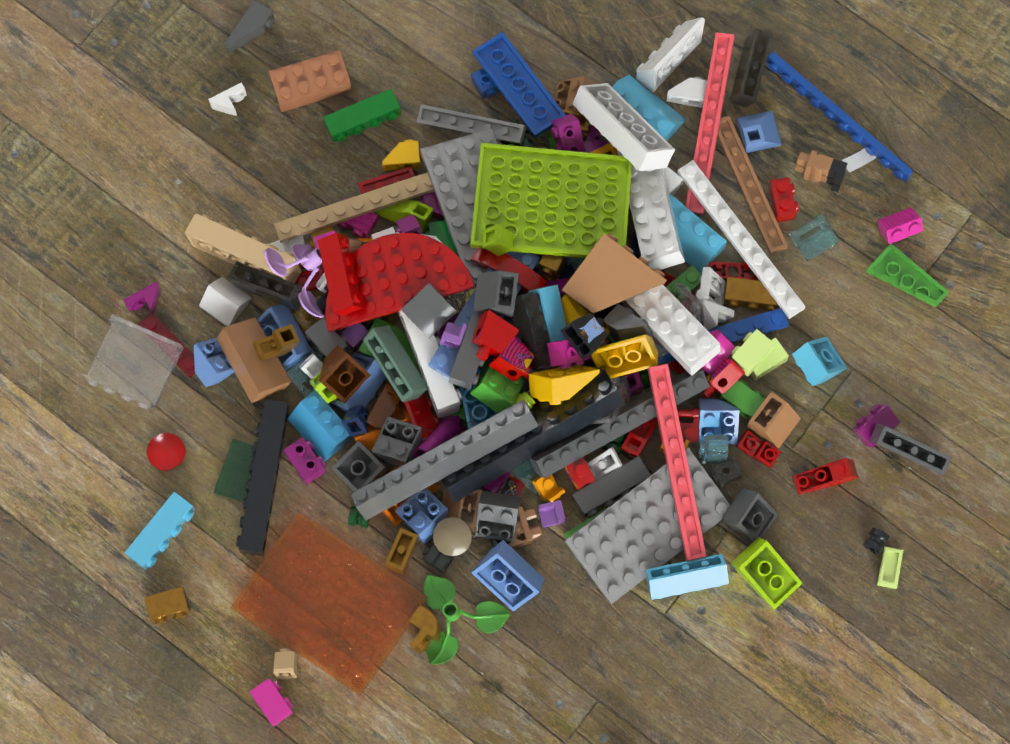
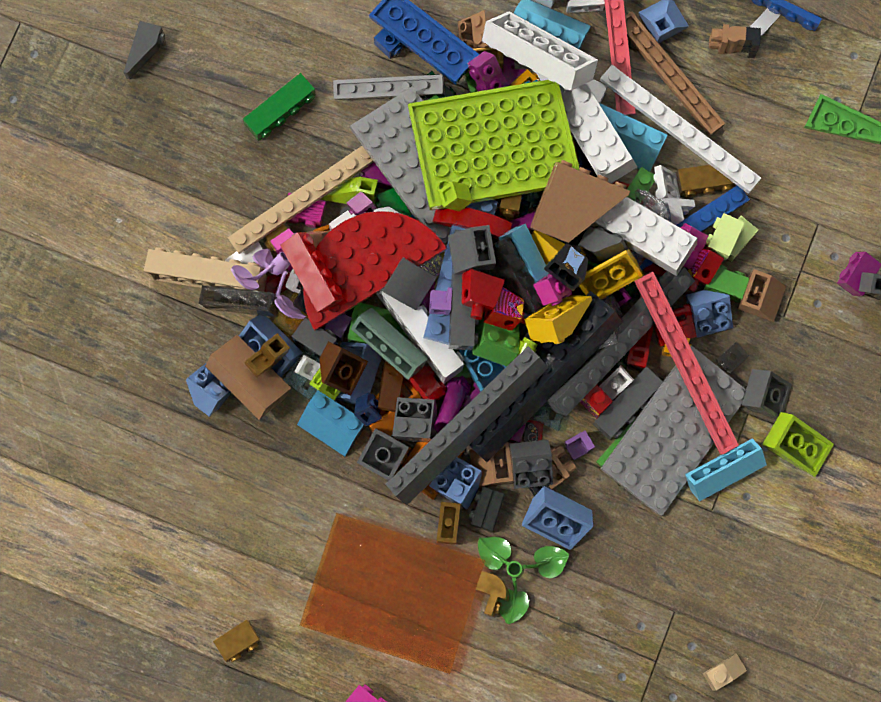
camera: 20 degrees left, 5 degrees up
(134, 363) = (131, 412): clear panel -> none
(147, 295) = (124, 341): magenta slope -> none
(159, 531) = (207, 570): medium azure brick -> none
(166, 451) = (189, 490): red dish -> none
(186, 359) = (159, 383): dark red plate -> none
(224, 100) = (140, 129): white slope -> none
(224, 301) = (201, 326): white slope -> none
(235, 471) = (268, 489): clear green piece -> none
(263, 478) = (292, 489): black brick -> none
(285, 664) = (369, 664): tan slope -> none
(304, 460) = (327, 461): magenta brick -> none
(310, 81) = (219, 86): nougat brick -> none
(353, 518) = (391, 505): dark green wheel -> none
(385, 180) = (322, 164): red plate -> none
(403, 156) = (332, 136): yellow slope -> none
(452, 536) = (494, 496): dark tan dish -> none
(548, 488) = (569, 424): light orange bracket -> none
(714, 449) = (715, 339): clear light blue brick -> none
(718, 265) = (665, 161): red beam -> none
(758, 449) = (754, 327): red slope -> none
(782, 199) = (706, 79): red brick -> none
(817, 242) = (750, 112): clear light blue plate -> none
(819, 361) = (786, 226): medium azure slope -> none
(826, 476) = (825, 335): red slope -> none
(900, 225) = (824, 74): dark pink brick -> none

